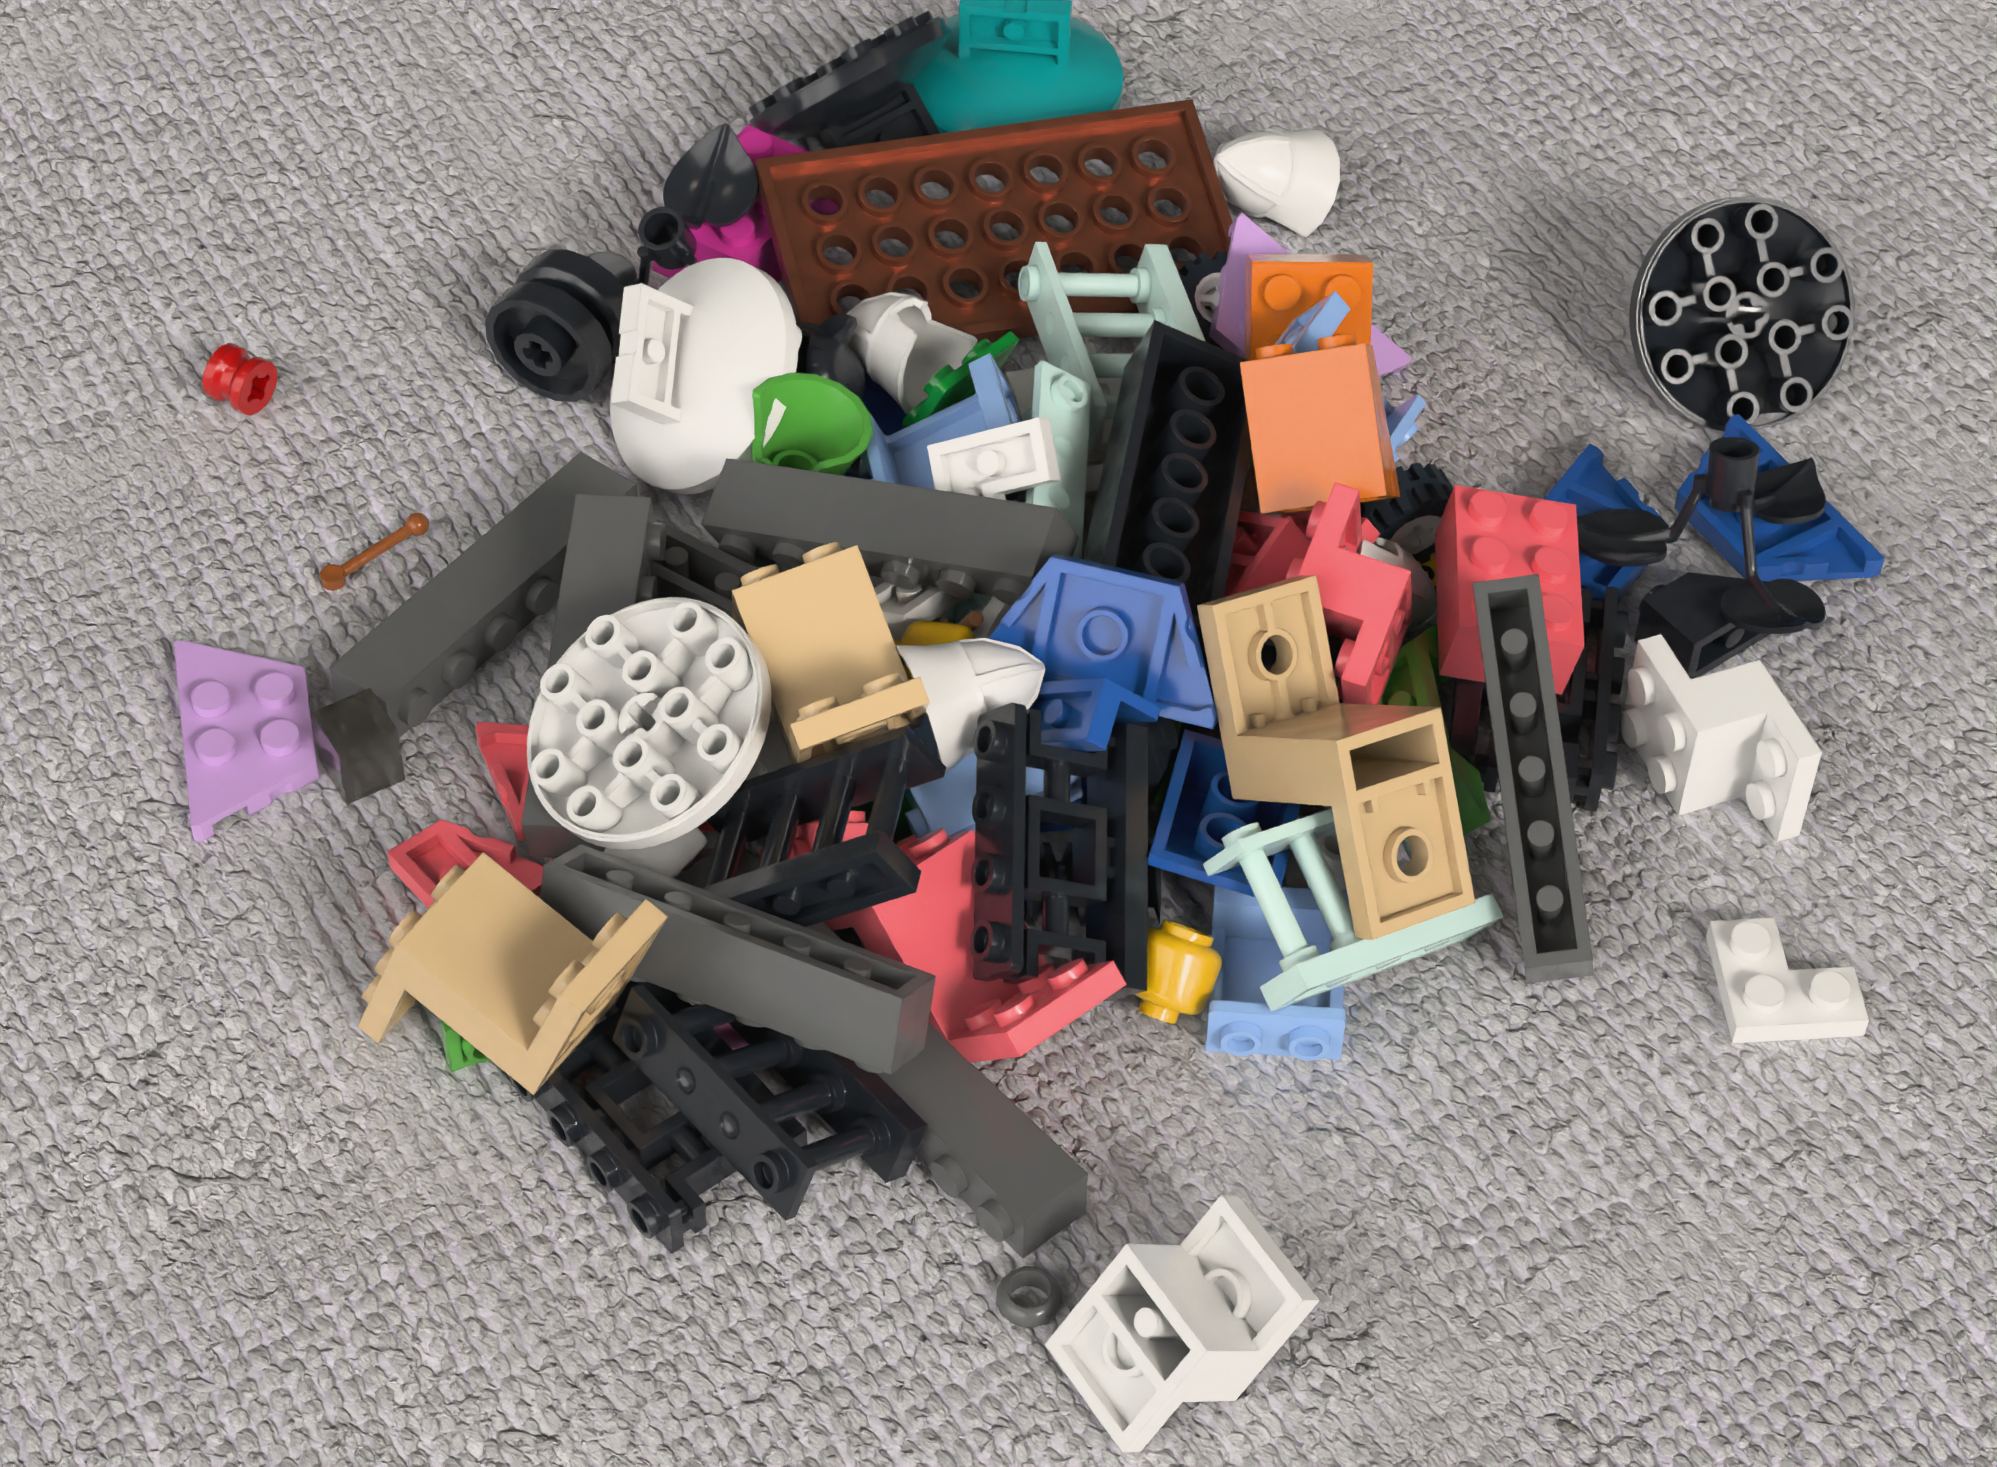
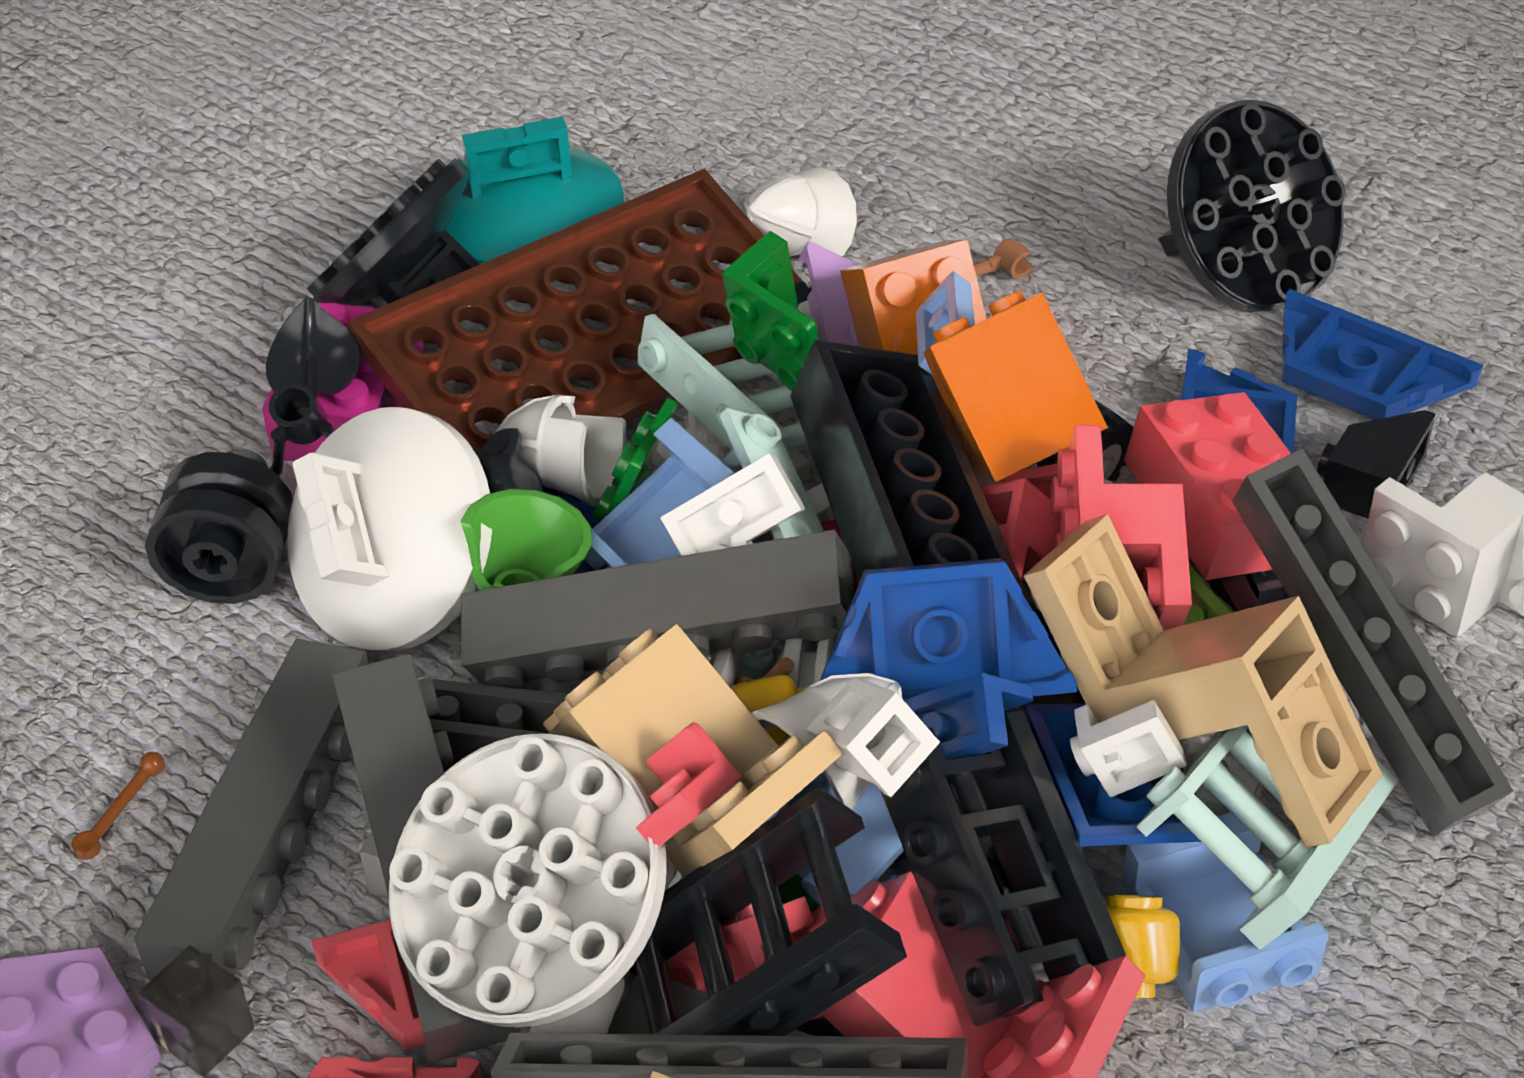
camera: 20 degrees left, 5 degrees down
(812, 676) = (692, 778): none -> coral bracket
(969, 697) = (876, 734): none -> white brick
(1145, 264) = (766, 310): none -> green bracket
(1229, 791) = (1126, 747): none -> white bracket
(1475, 286) = (1007, 256): none -> nougat hand
(1732, 483) = (1366, 334): black plant -> none

